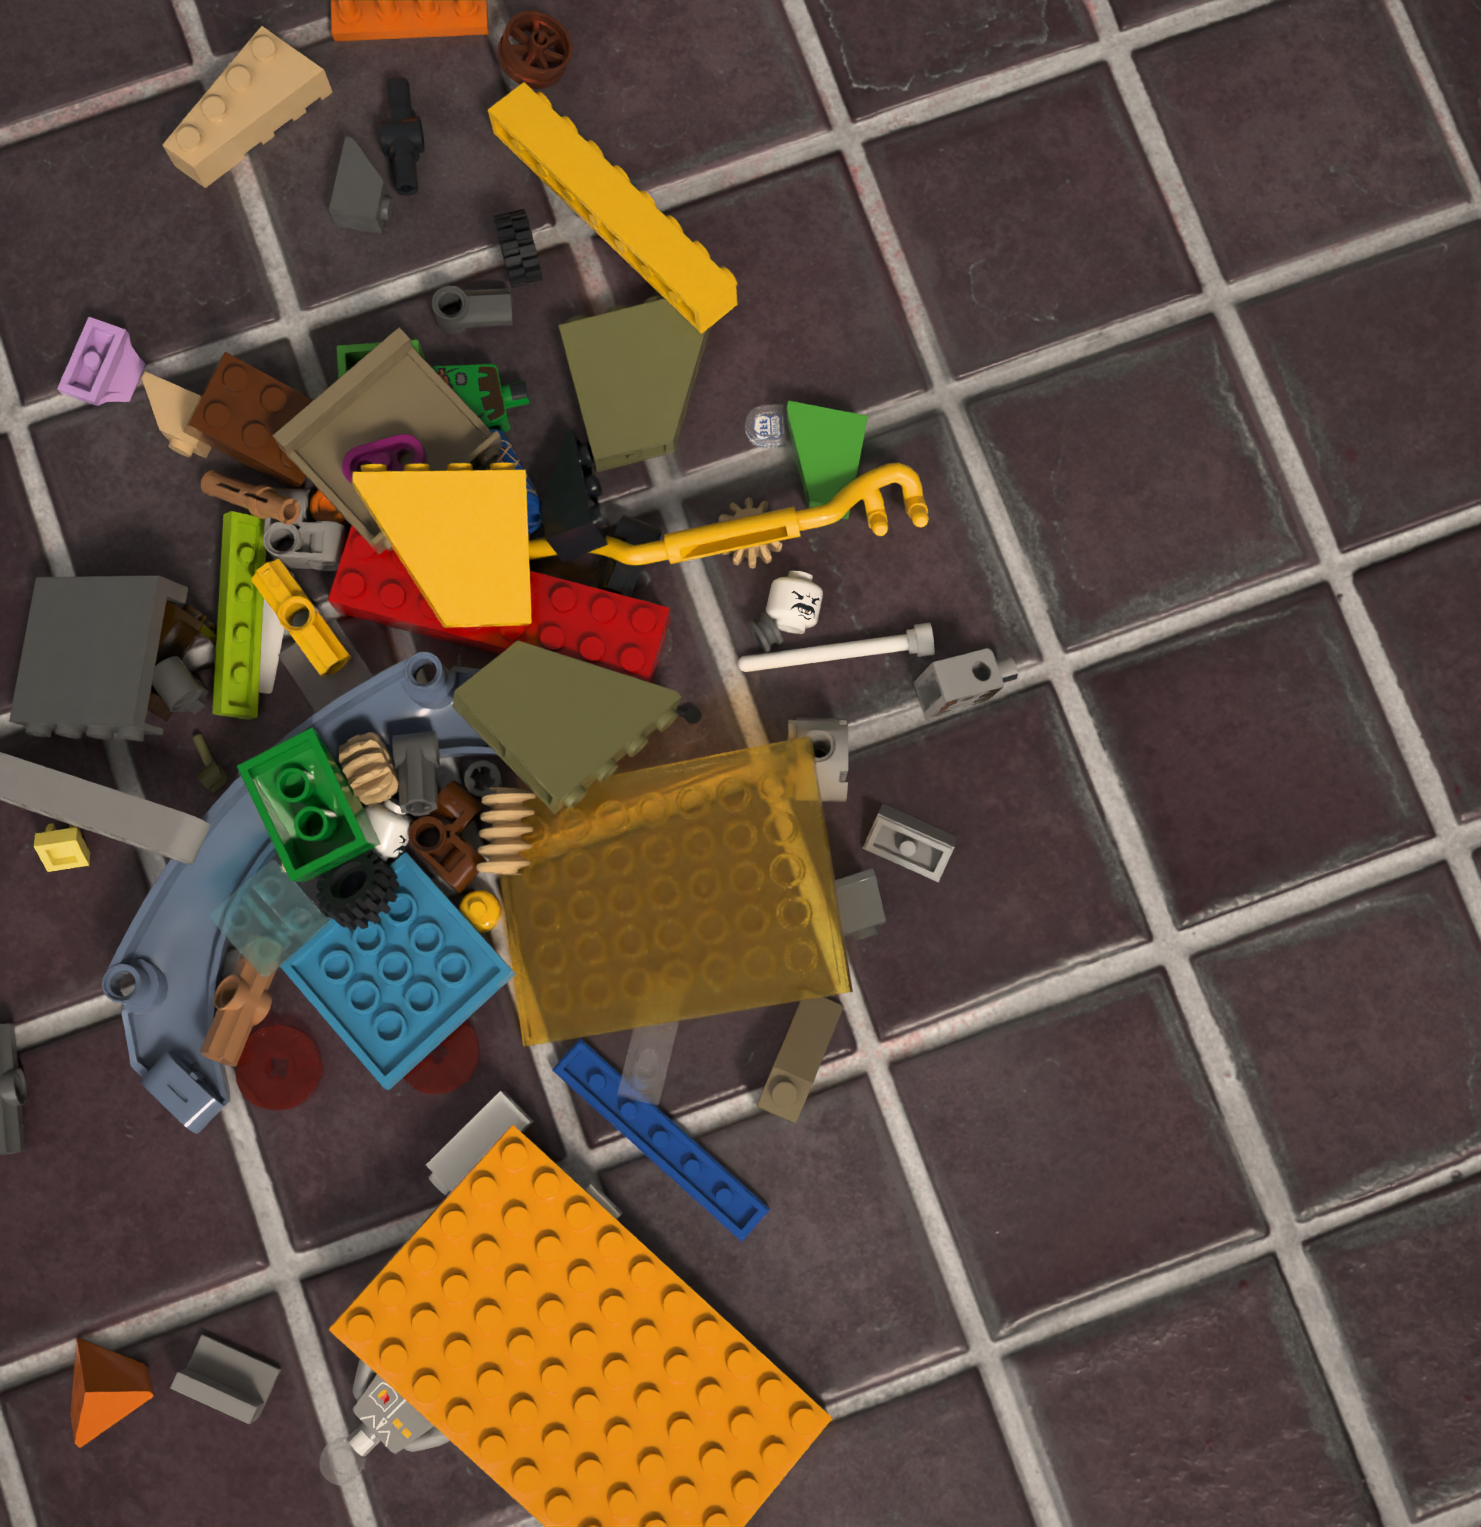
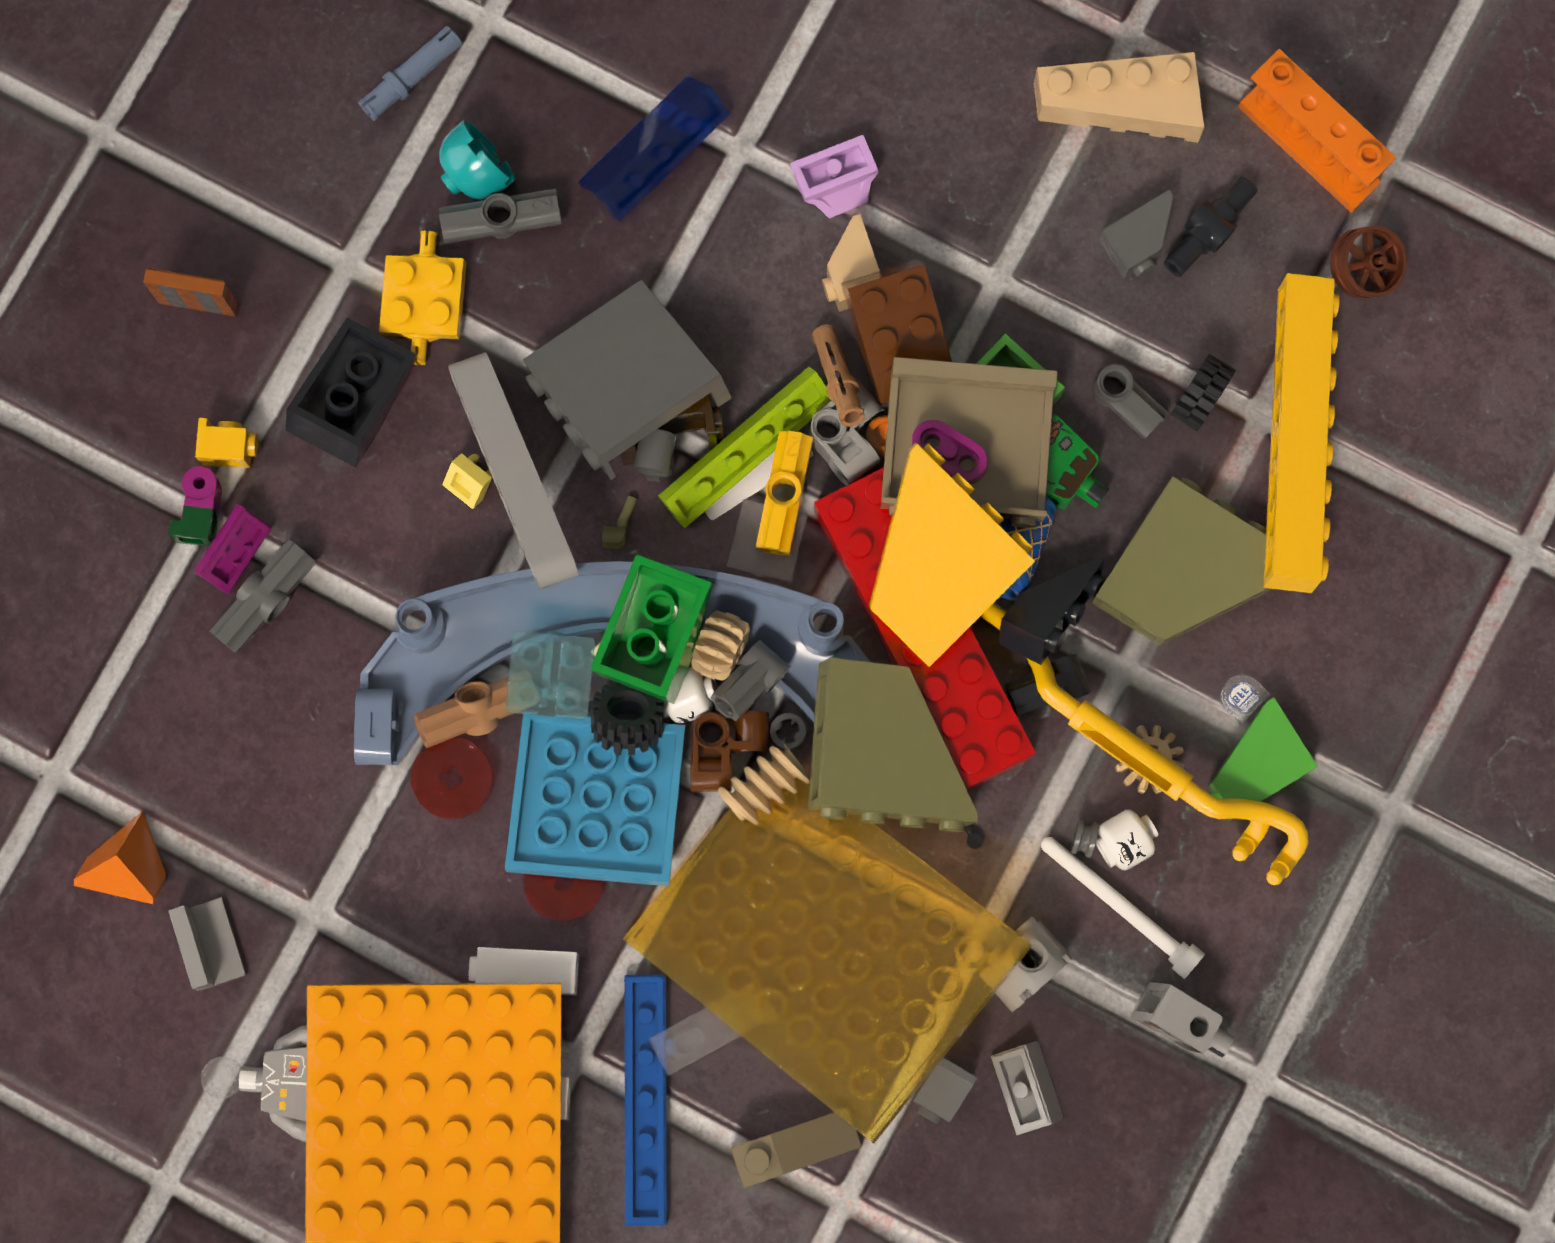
camera: 50 degrees right, 0 degrees up
(481, 910) = (692, 818): yellow piece -> none

